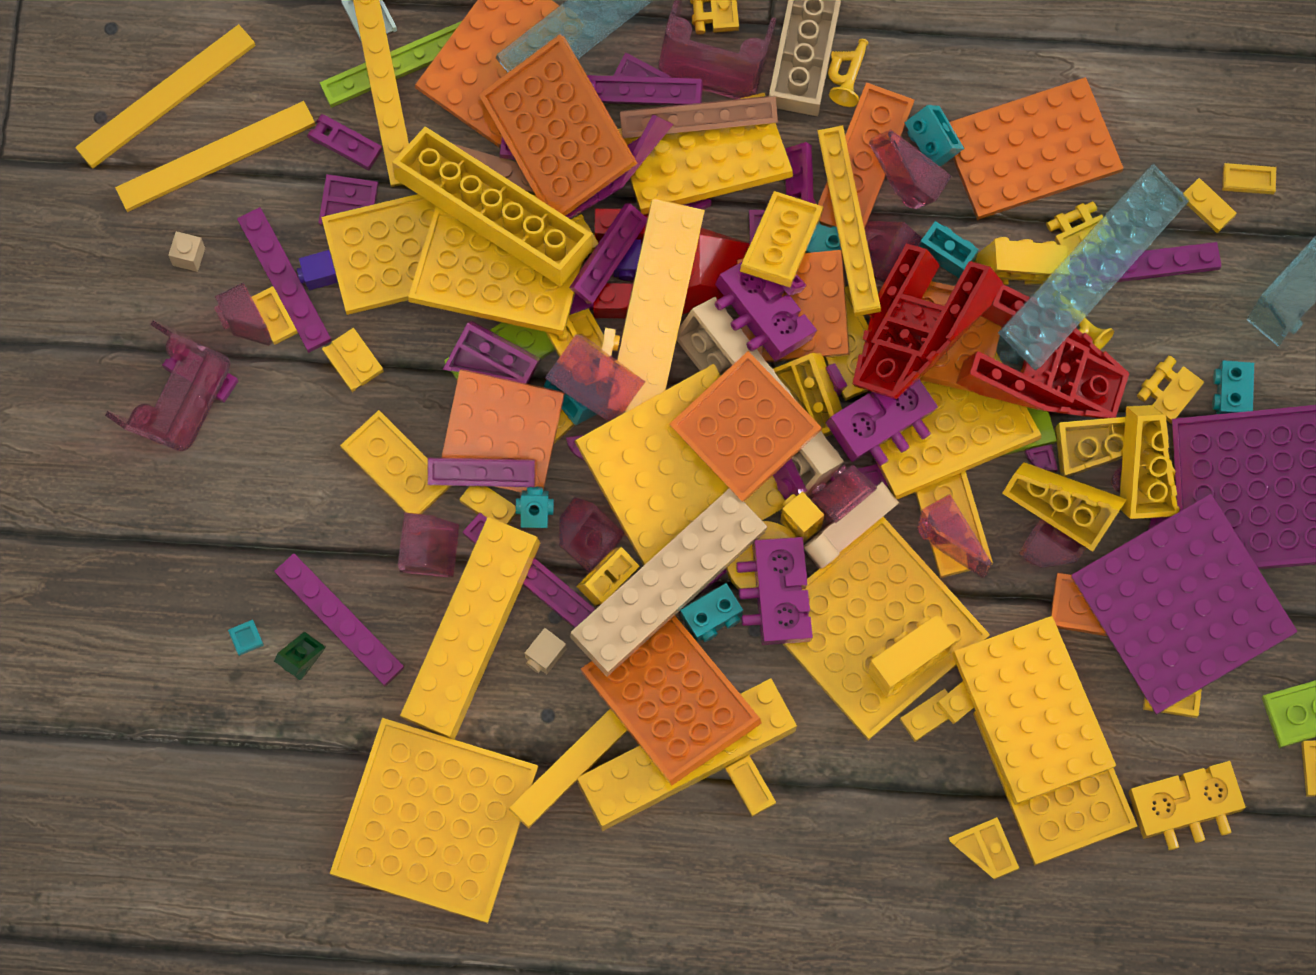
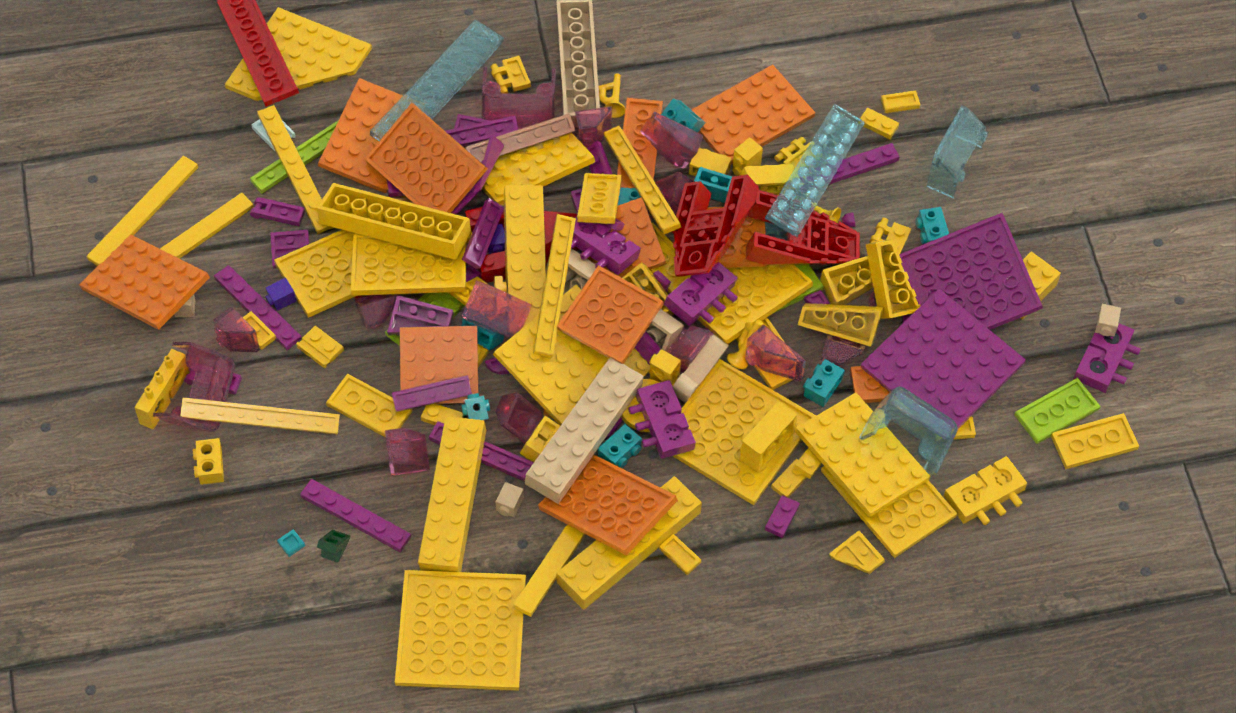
camera: 15 degrees left, 15 degrees down
(133, 367) = (162, 388): none -> yellow piece
(141, 209) = (144, 281): none -> orange plate
(172, 494) = (209, 461): none -> yellow brick
(246, 447) = (260, 416): none -> yellow tile
(438, 327) = (375, 309): none -> clear pink slope
(682, 362) = (554, 286): none -> yellow tile
(803, 118) = (591, 124): none -> clear pink slope
(902, 766) = (782, 516): none -> magenta plate
(906, 521) = (739, 358): none -> yellow piece
(954, 213) = (711, 161): none -> yellow brick
(1005, 221) = (746, 154): none -> yellow brick
(1013, 586) = (823, 382): none -> teal brick
(1121, 347) = (848, 219): none -> magenta hinge
(1141, 700) = (920, 420): none -> clear light blue windscreen

